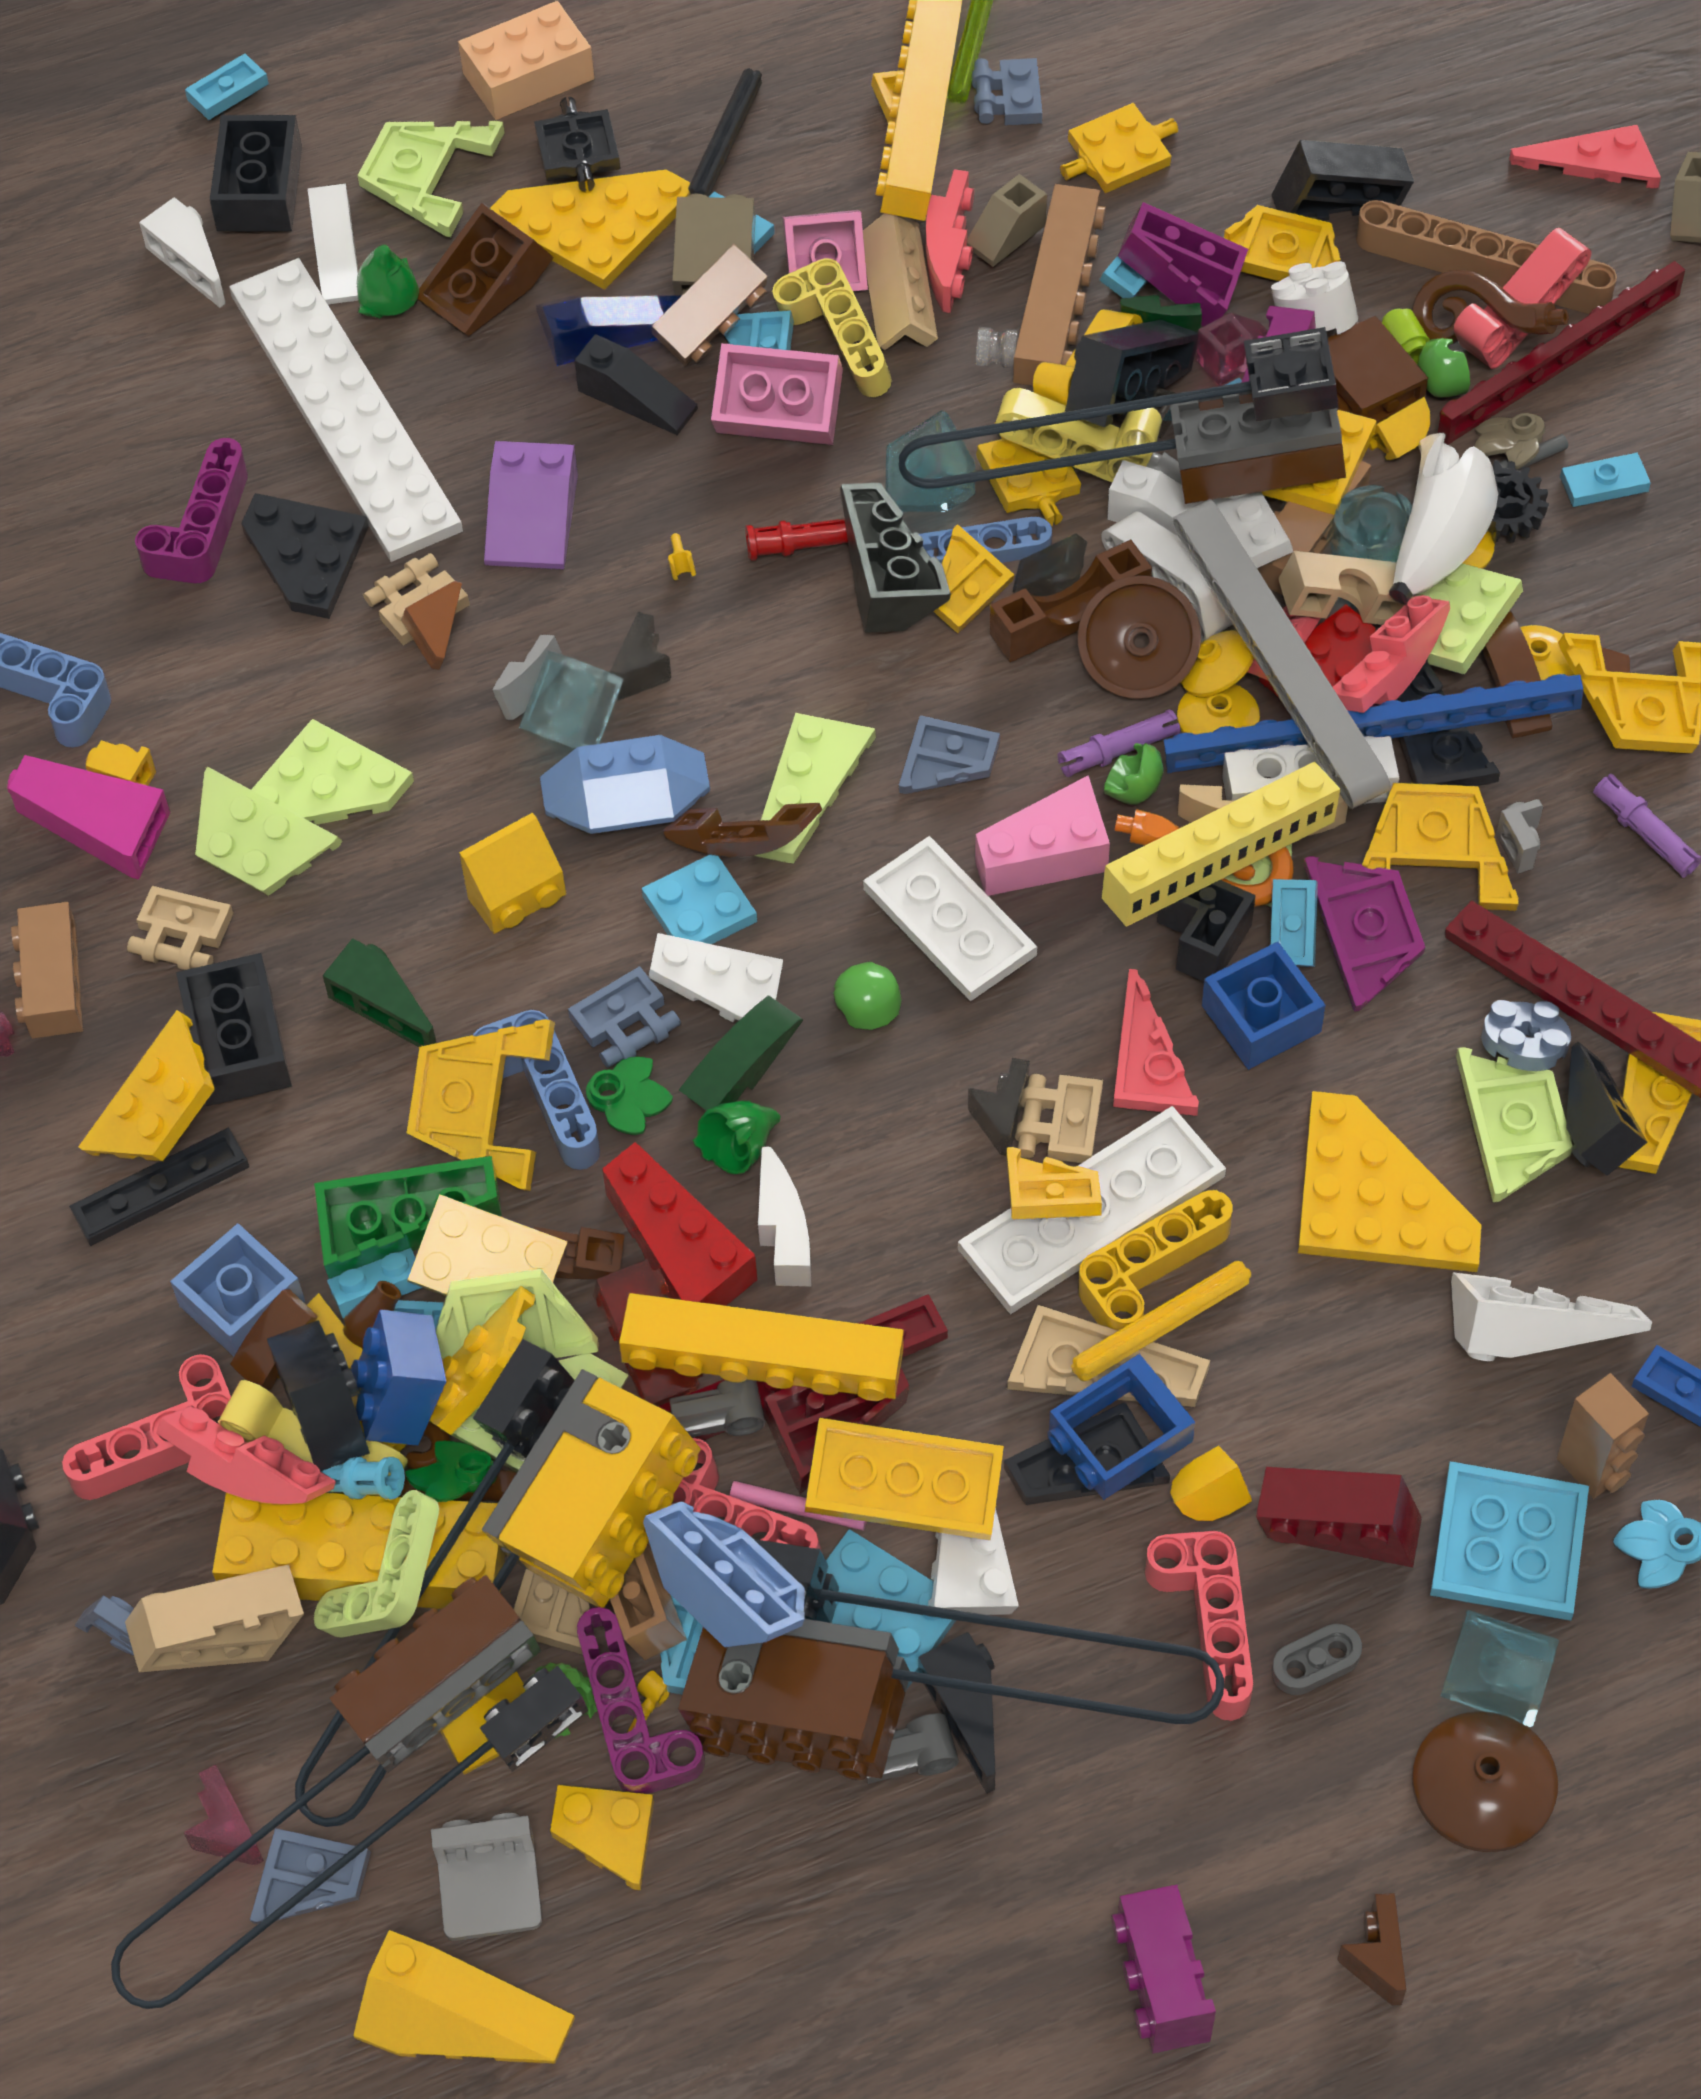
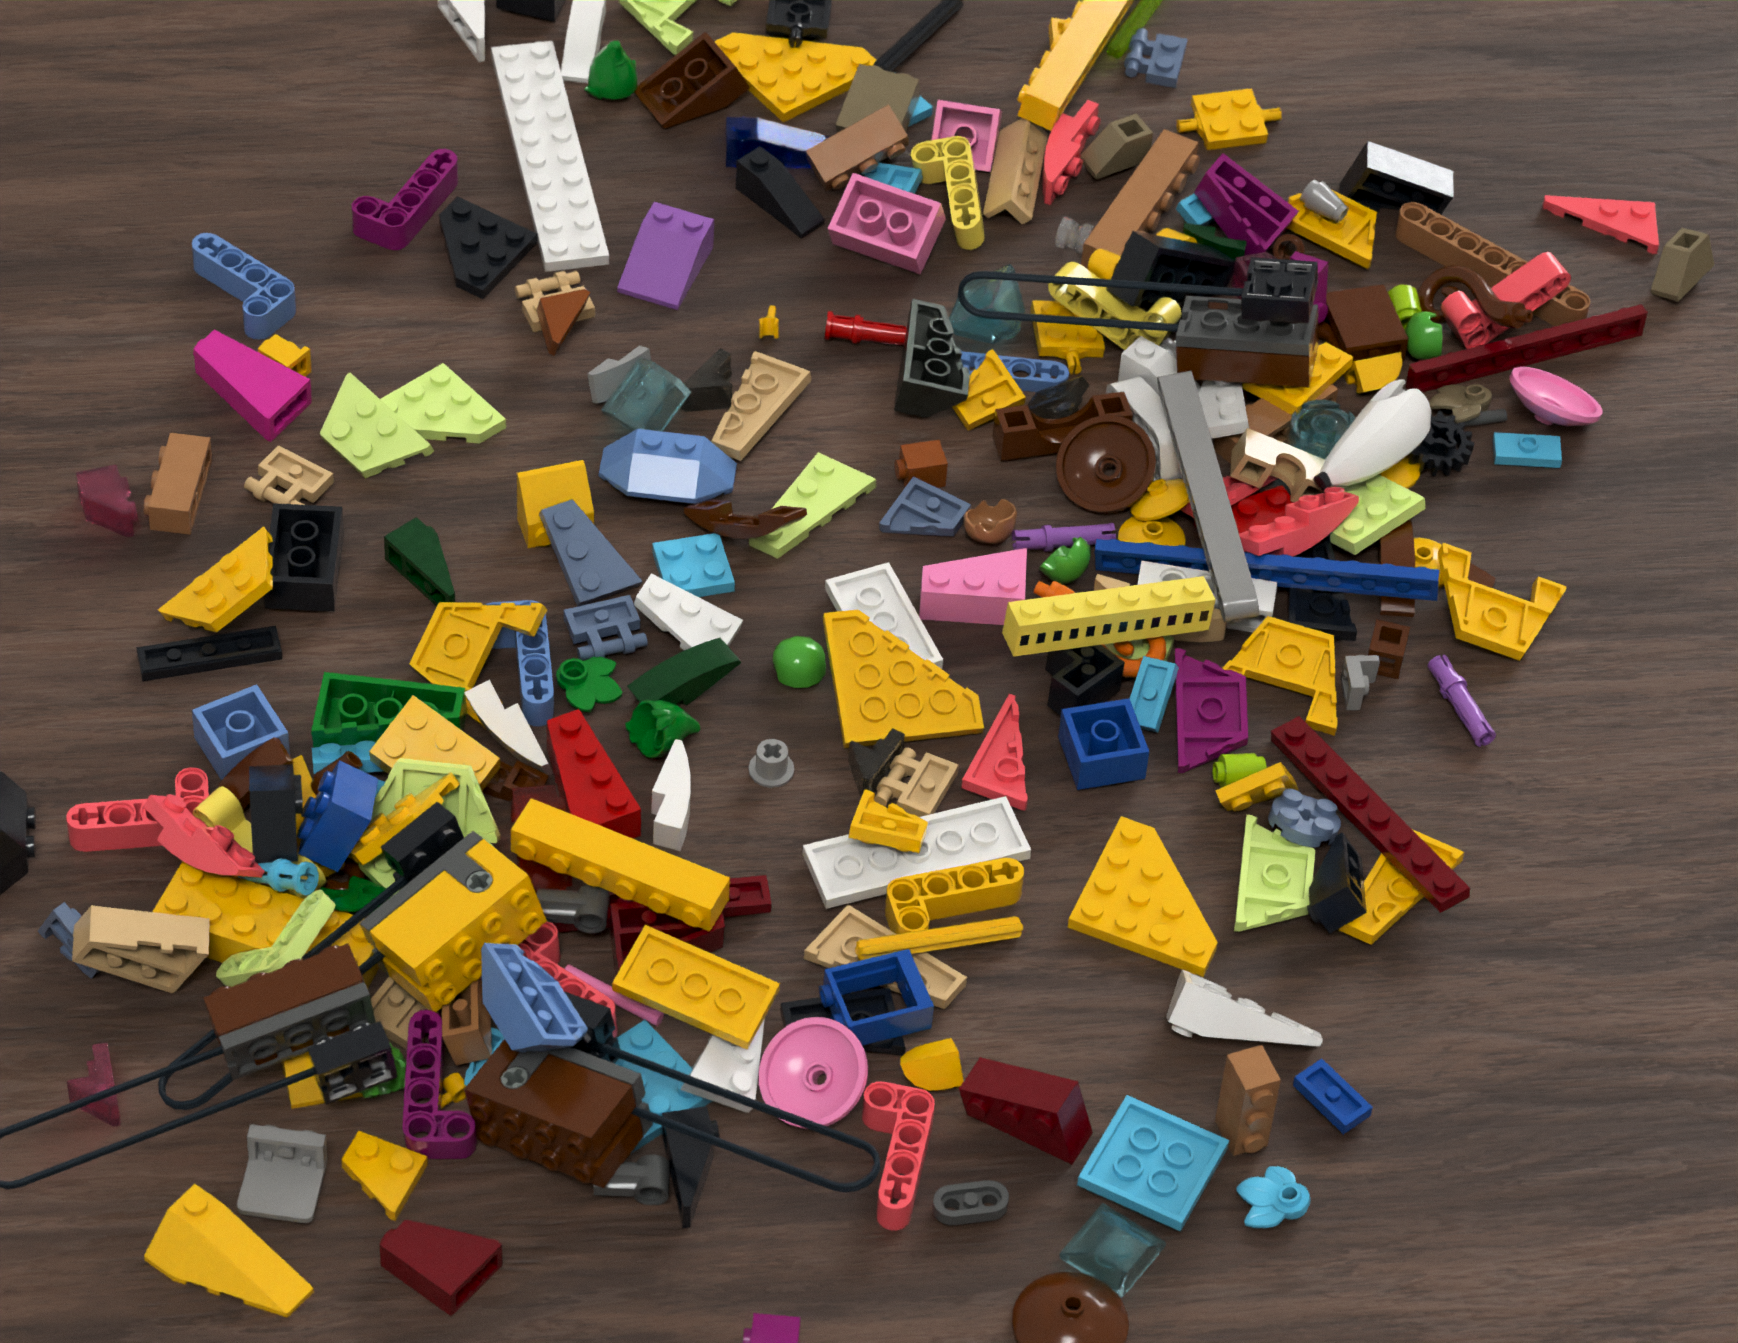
camera: 10 degrees right, 10 degrees down
(297, 1861) = (161, 1151): sand blue wing -> none
(557, 1188) = (507, 726): none -> white slope
(569, 929) = (585, 555): none -> sand blue wing
(703, 666) = (762, 398): none -> tan wing
(716, 1936) = (440, 1262): none -> dark red slope
(881, 1142) = (771, 764): none -> light grey piece
(923, 693) = (922, 461): none -> dark orange brick
(990, 1003) = (889, 686): none -> yellow plate
(1029, 749) = (990, 523): none -> medium nougat hair
(1047, 1554) = (800, 1056): none -> bright pink dish
(1251, 309) = (1281, 246): none -> reddish brown cone
(1270, 227) = (1323, 201): none -> light grey cone
(1321, 290) = (1346, 259): white brick -> none
(1428, 992) = (1236, 767): none -> lime brick
(1472, 1003) = (1256, 788): none -> yellow wing
(1543, 777) = (1389, 644): none -> reddish brown brick
(1618, 407) = (1554, 398): none -> bright pink dish

